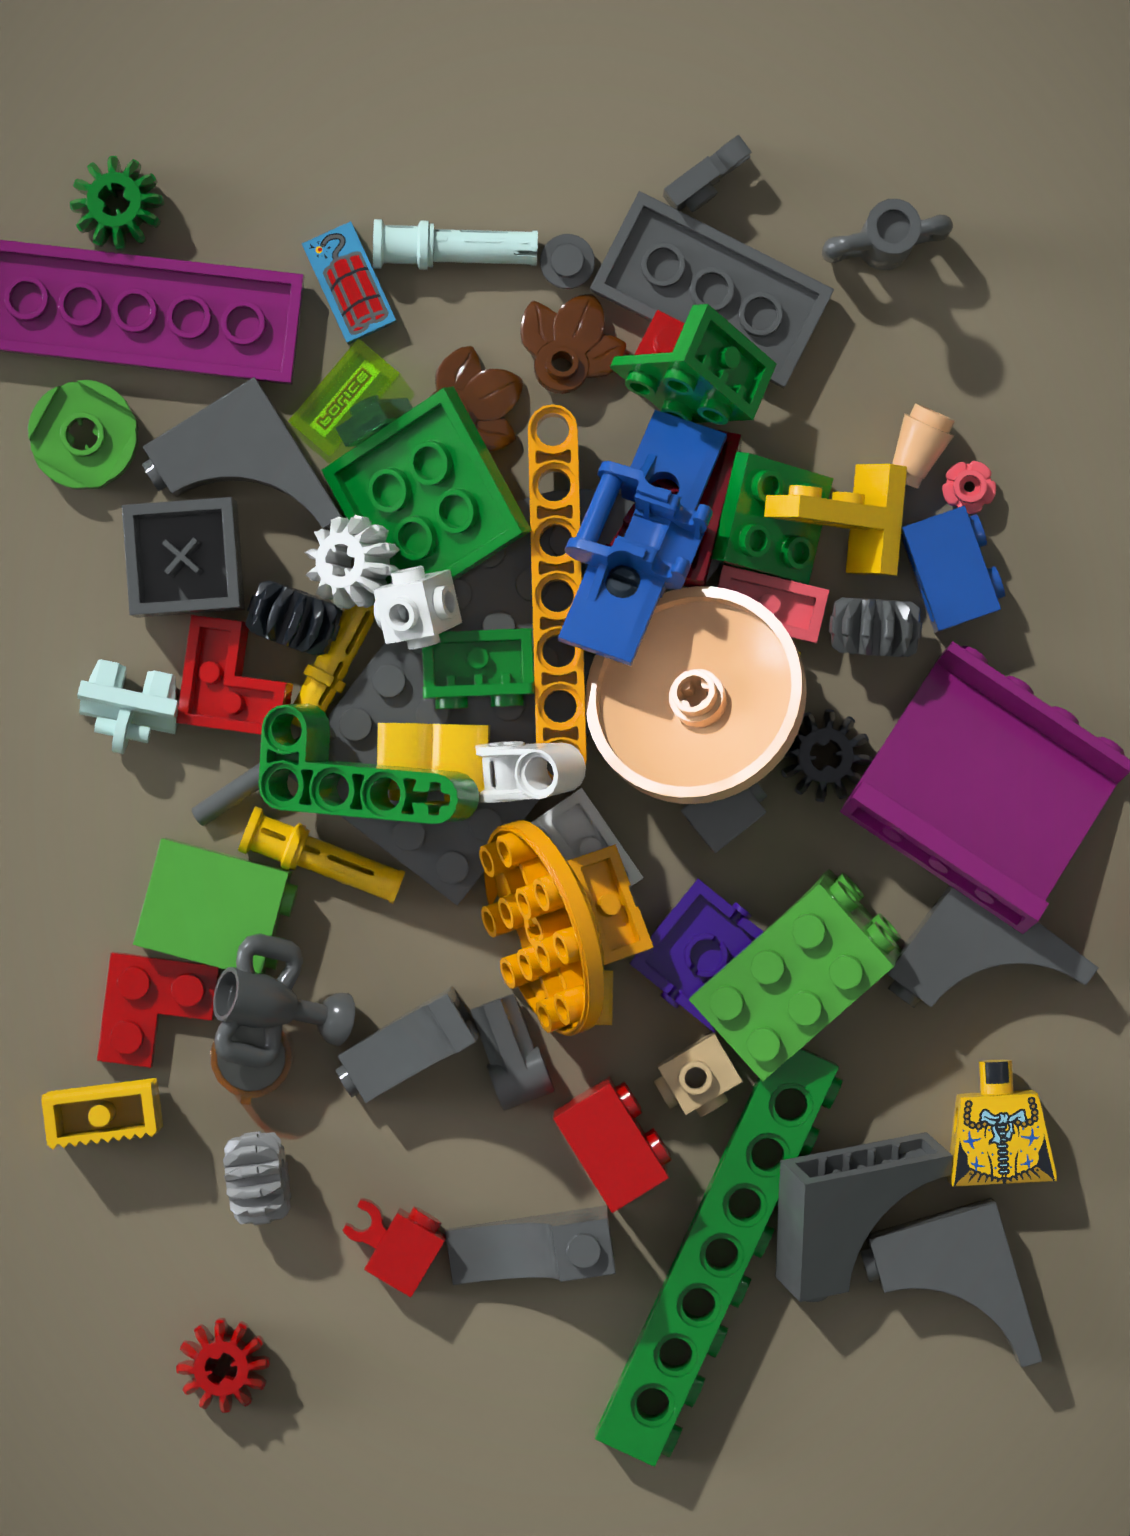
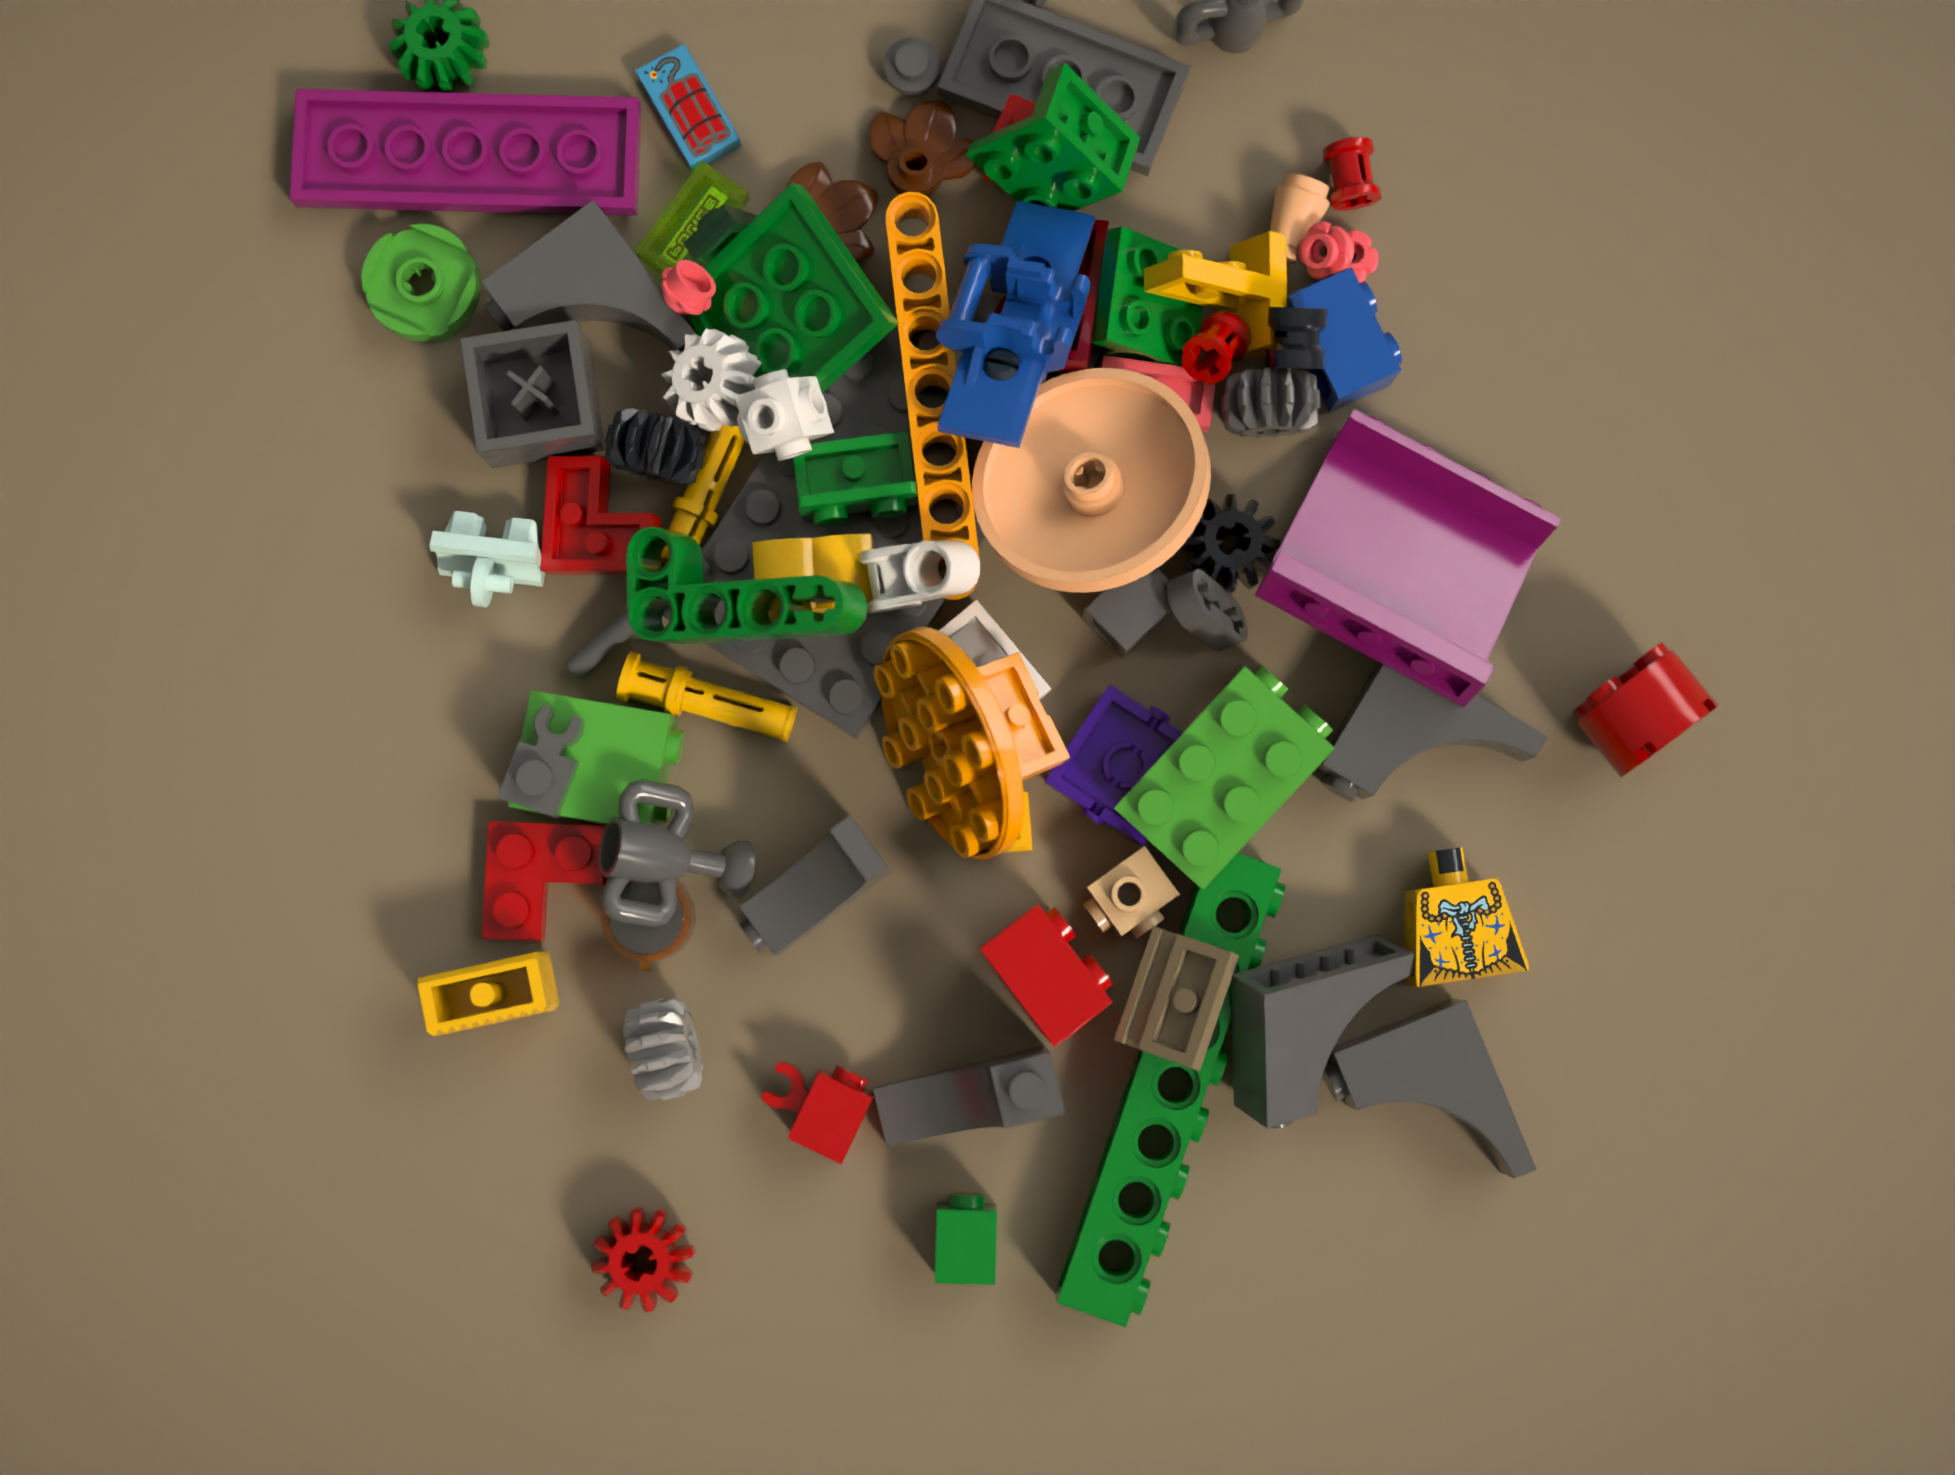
camera: 10 degrees left, 5 degrees down
(166, 918) = (540, 773): none -> dark grey plate
(336, 471) = (687, 288): none -> coral plate
(427, 245) = (763, 61): light aqua pin -> none
(515, 1063) = (931, 898): dark grey piece -> none
(517, 1375) = (966, 1240): none -> green brick
(728, 1177) = (1176, 998): none -> dark tan plate
(795, 820) = (1207, 610): none -> dark grey beam
(828, 570) = (1220, 354): none -> red bush
(902, 574) = (1296, 337): none -> black wheel
(954, 482) = (1339, 250): none -> coral plate
(978, 407) = (1351, 173): none -> red bush

